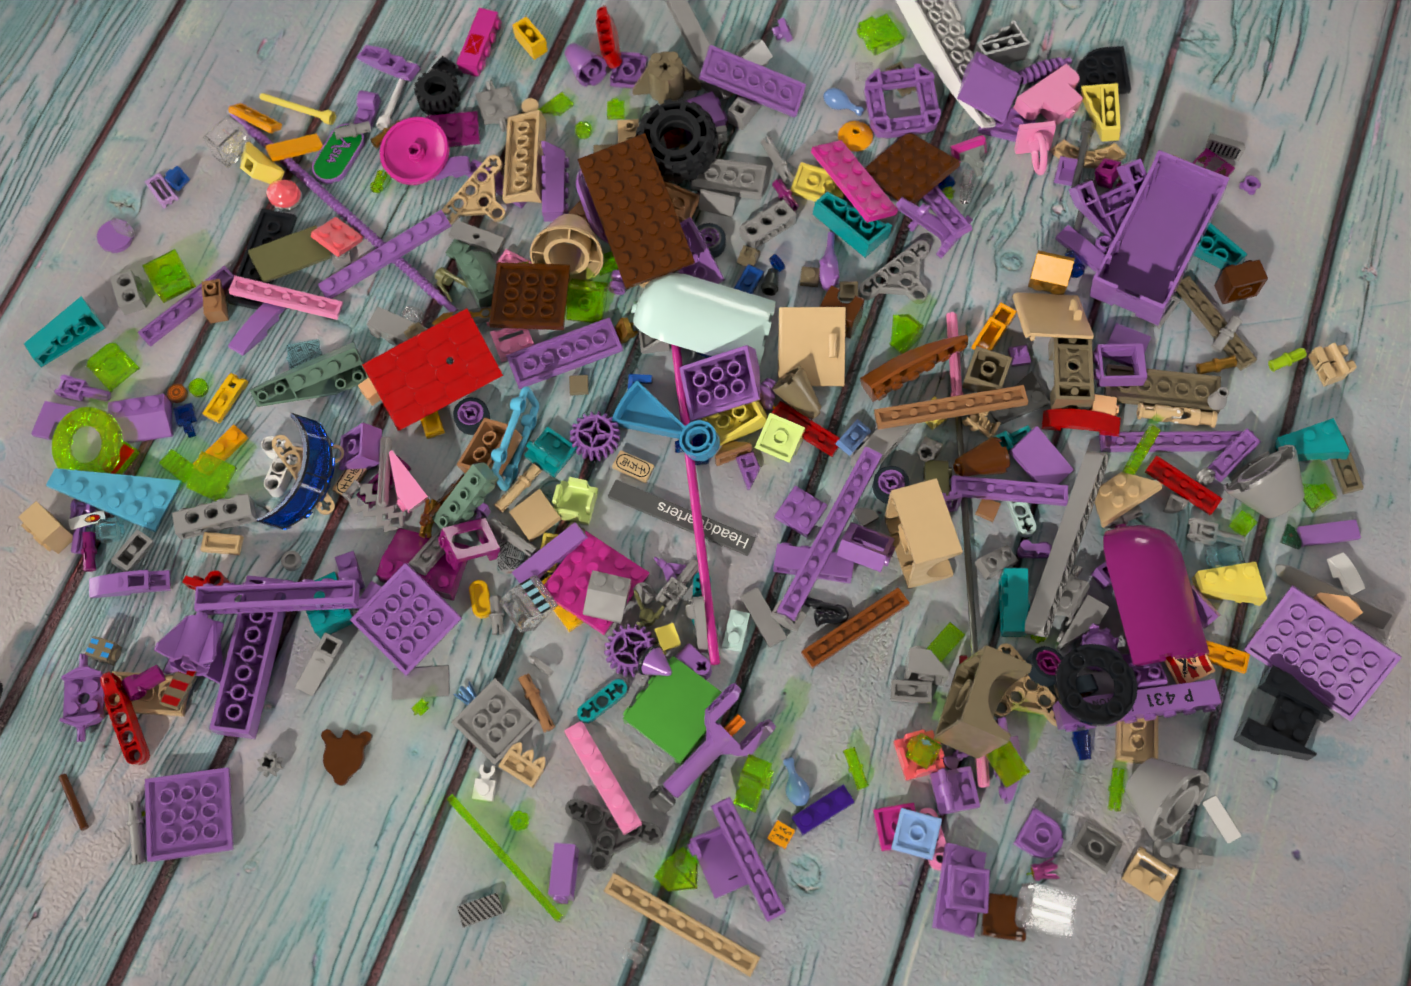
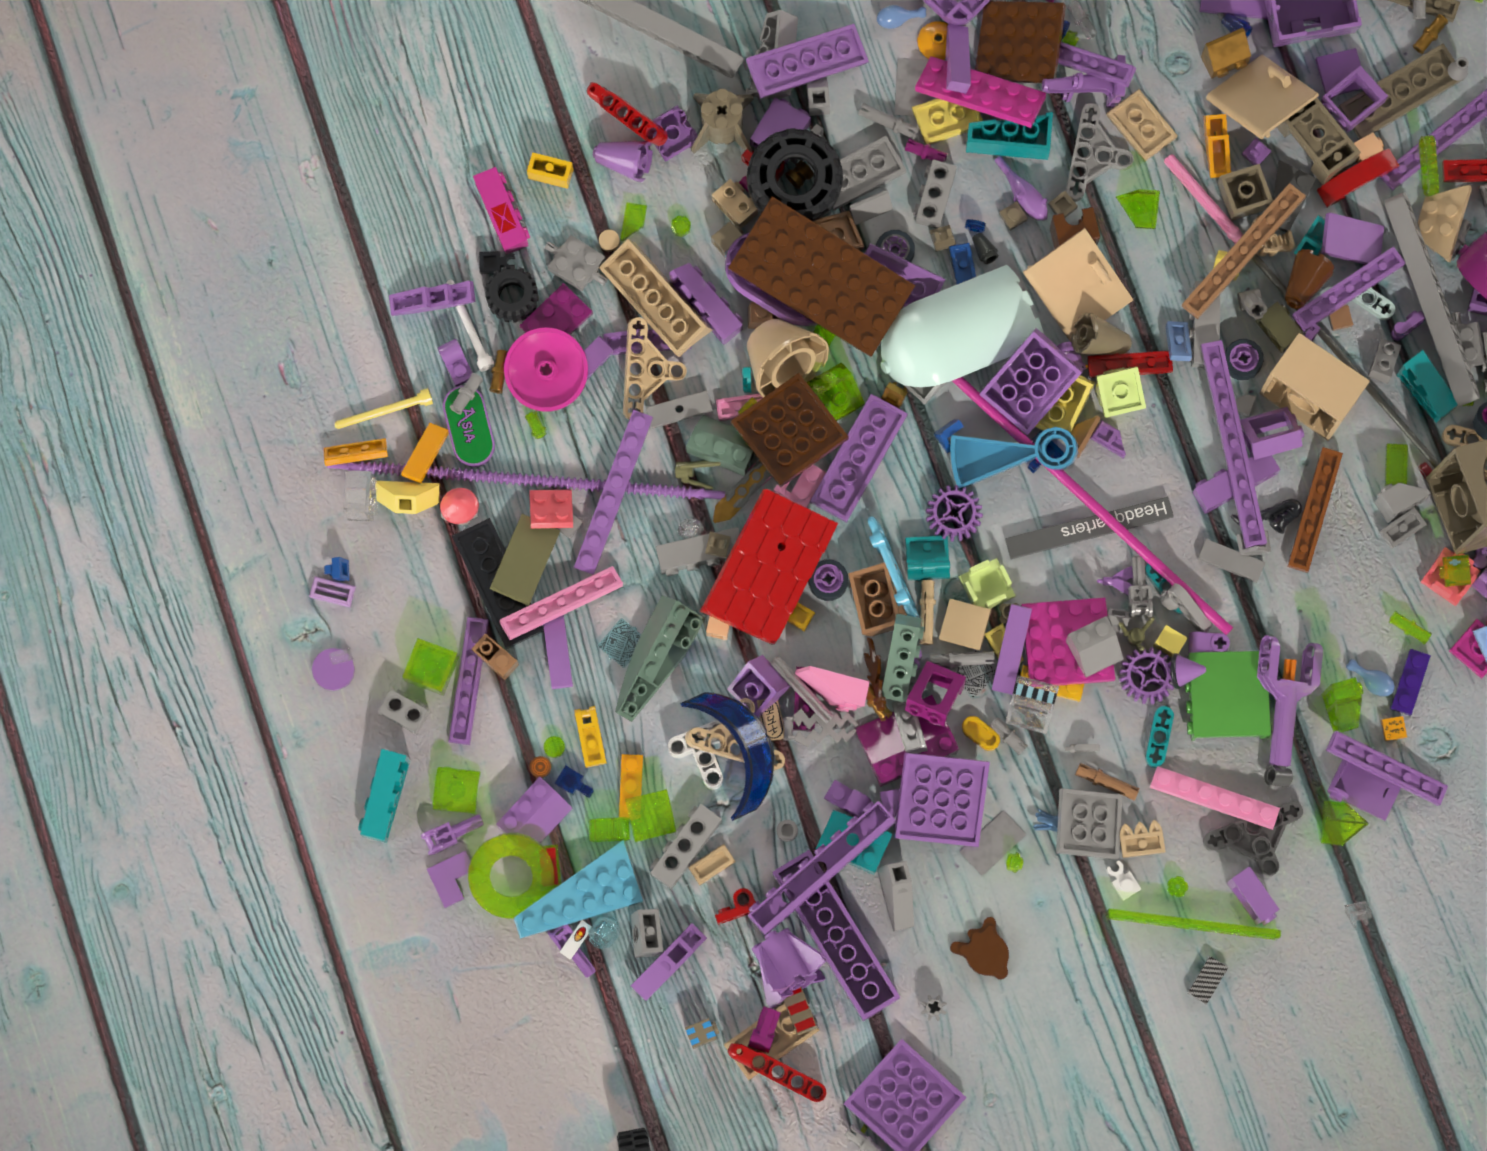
camera: 40 degrees left, 10 degrees up
(45, 528) = (551, 973): tan brick -> none
(76, 685) = (709, 1071): medium lavender plate -> none
(89, 551) = (603, 964): magenta pin -> none
(457, 248) = (671, 435): sand green plate -> none
(579, 385) = (896, 477): dark tan tile -> none
(615, 109) = (693, 182): clear neon green tile -> none
(617, 285) = (848, 354): medium lavender wheel -> none
(633, 466) = (1009, 514): tan tile -> none
(682, 924) = (1374, 861): tan tile -> none
(736, 630) = (1218, 589): light aqua plate -> none
(801, 511) = (1185, 442): medium lavender plate -> none
(855, 149) = (958, 58): none -> medium lavender slope
(909, 365) = (1173, 239): dark orange wedge -> none
(951, 282) = (1141, 125): none -> tan tile
(1165, 413) = (1420, 114): tan piece -> none

